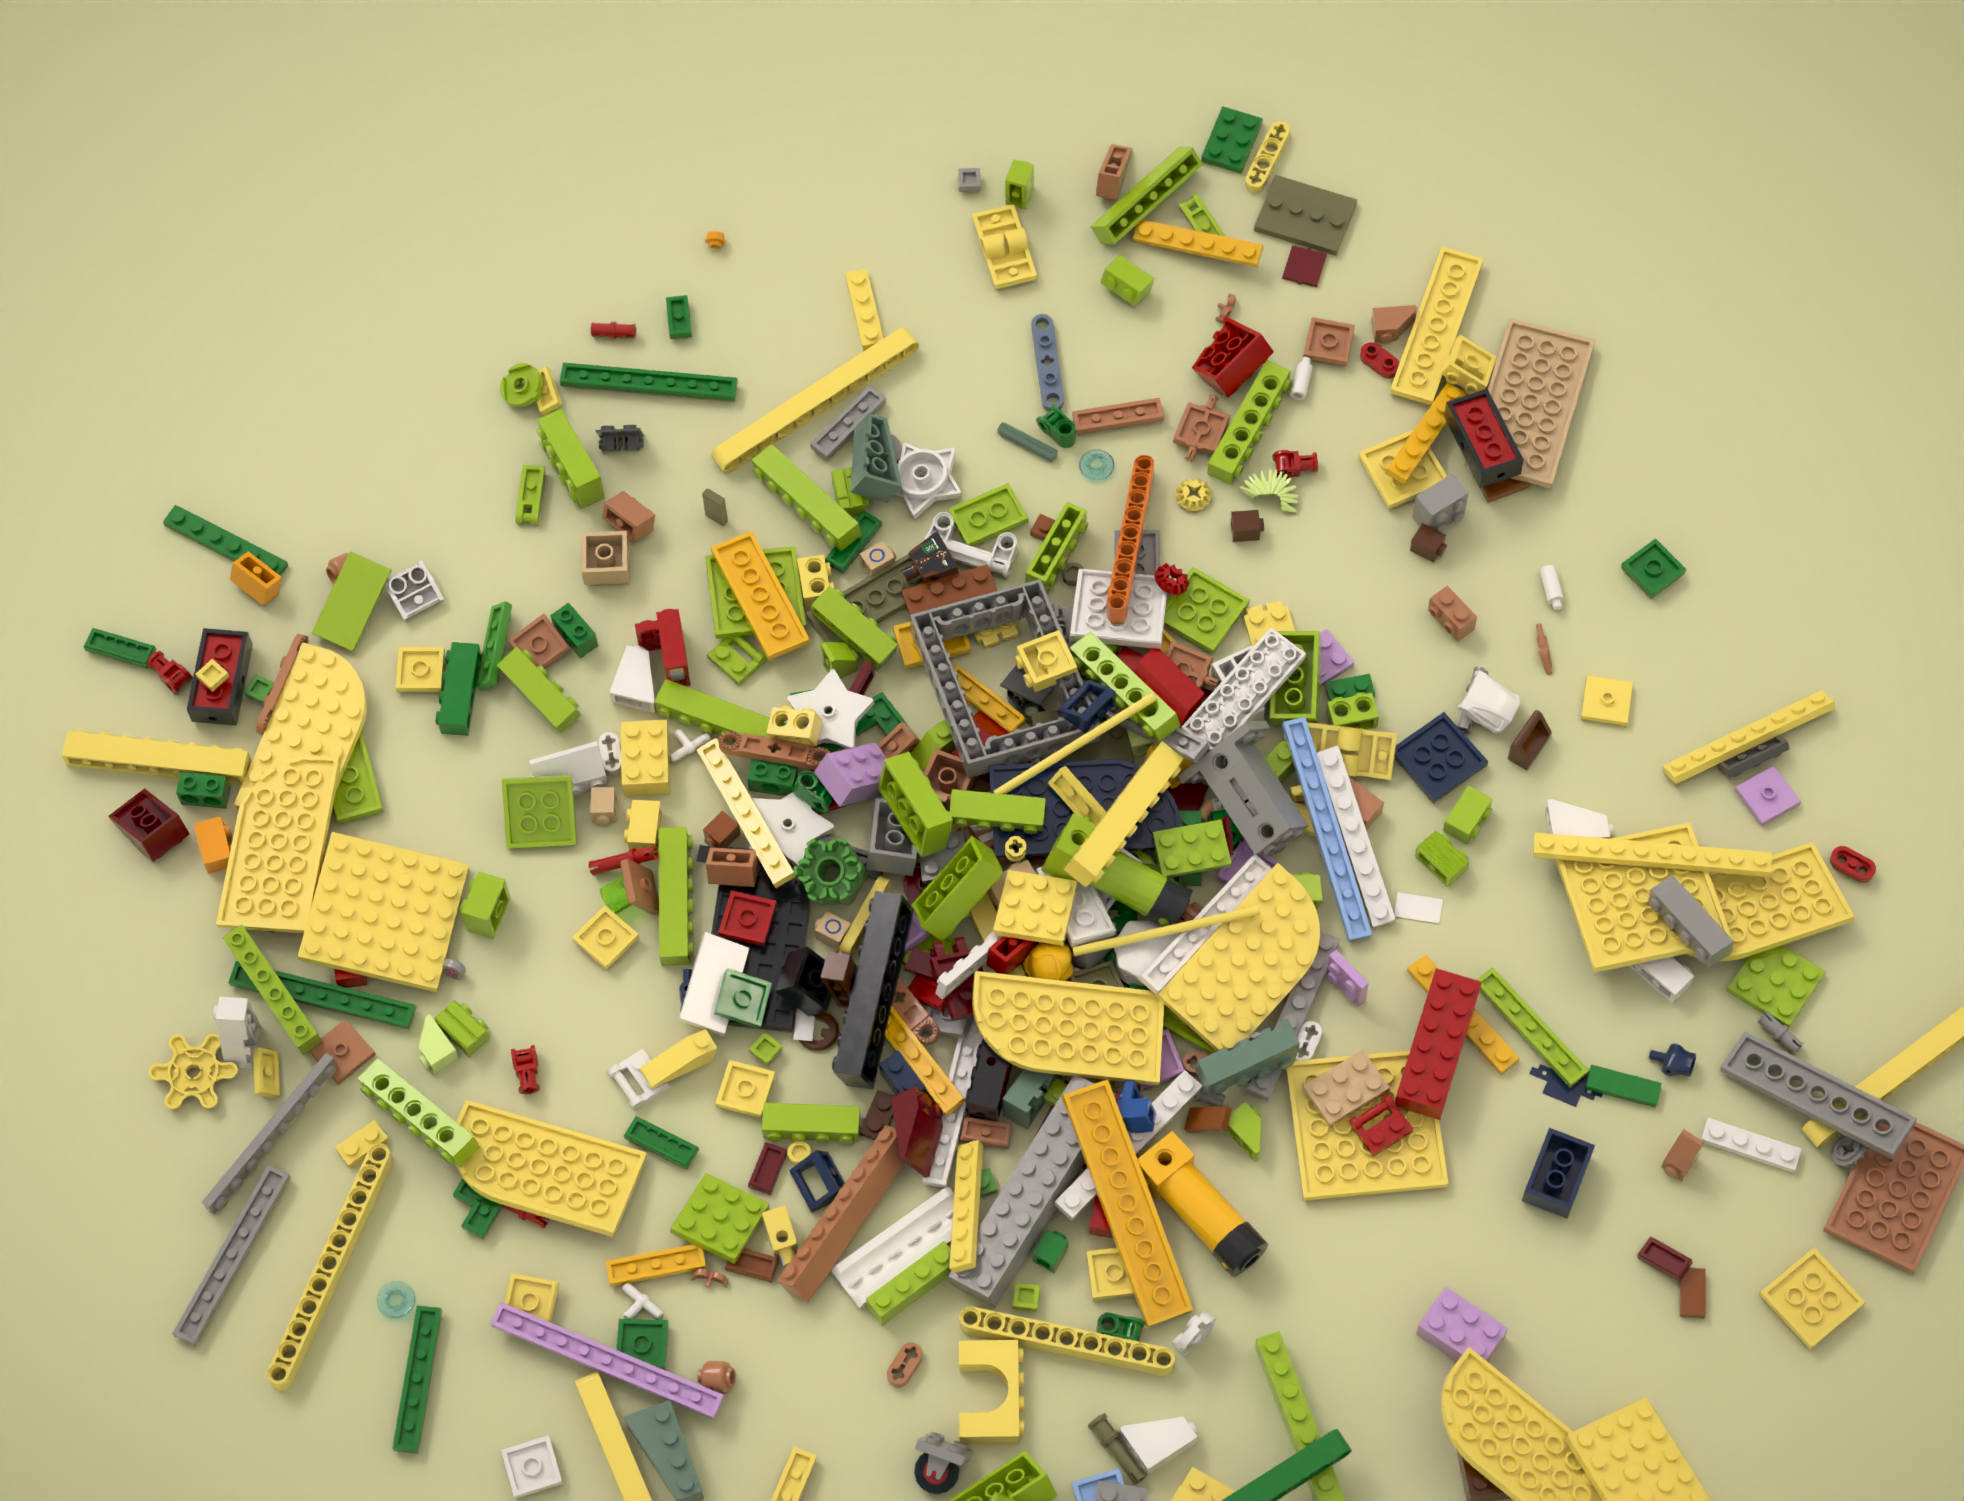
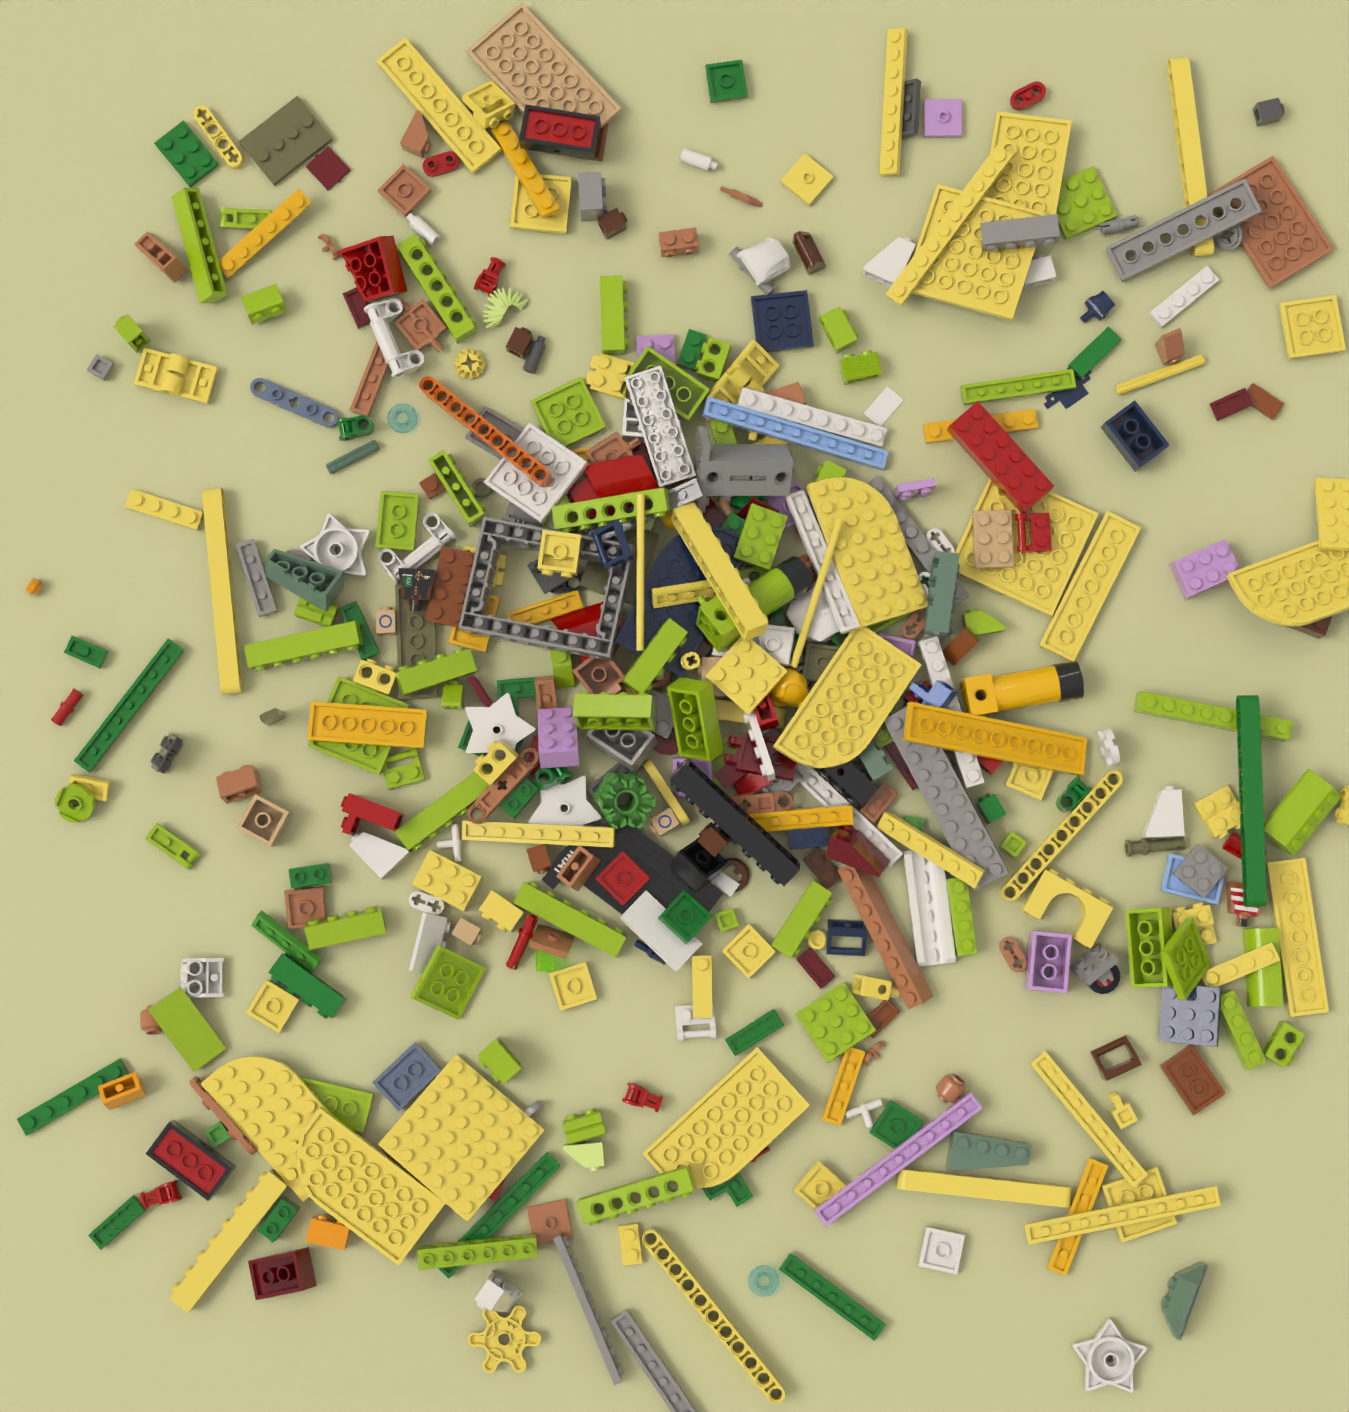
camera: 65 degrees left, 20 degrees up
(212, 675) = (193, 1168): light yellow plate -> none
(266, 1073) = (536, 1286): light yellow plate -> none
(419, 830) = (407, 1076): none -> sand blue plate
(570, 459) = (164, 801): lime brick -> none
(917, 1401) = (1048, 961): none -> lavender brick
(1162, 405) = (380, 316): none -> white piece
(1169, 585) = (541, 425): red gear -> none
(1181, 367) = (356, 306): none -> dark red tile
(1242, 547) = (534, 355): none -> dark grey cylinder
(1333, 595) = (612, 315): none -> lime brick
(1362, 1221) = (1089, 586): none -> light yellow plate
(1647, 1167) = (1160, 374): none -> light yellow axle

